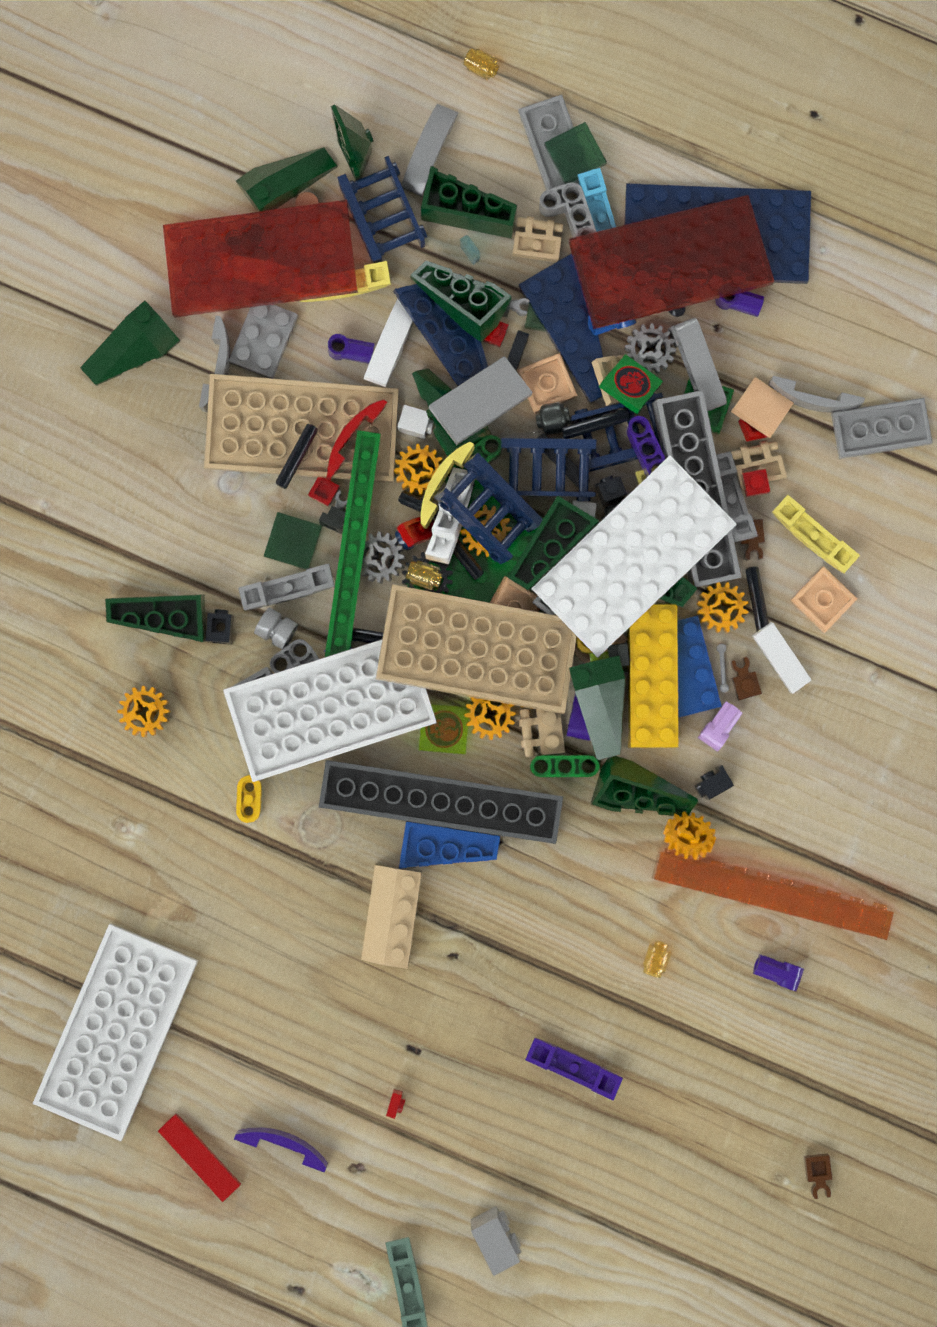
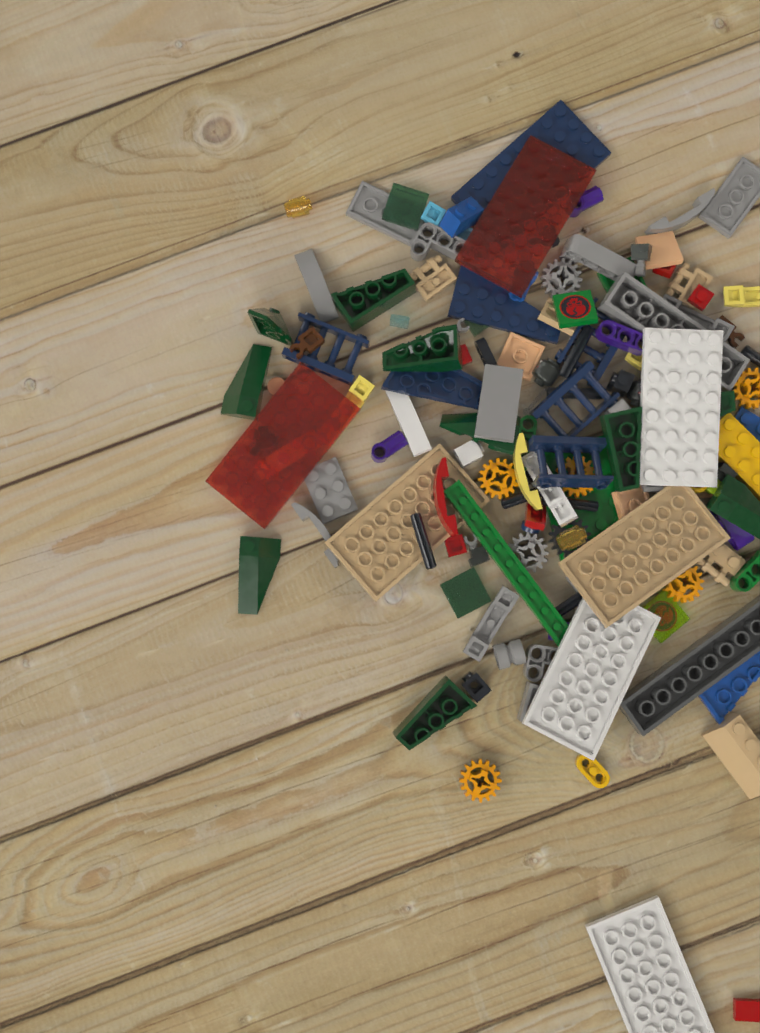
camera: 40 degrees left, 0 degrees up
(372, 189) = (309, 341): none -> reddish brown plate
(612, 207) = (461, 217): none -> blue brick
(739, 392) = (640, 253): none -> pearl dark grey piece

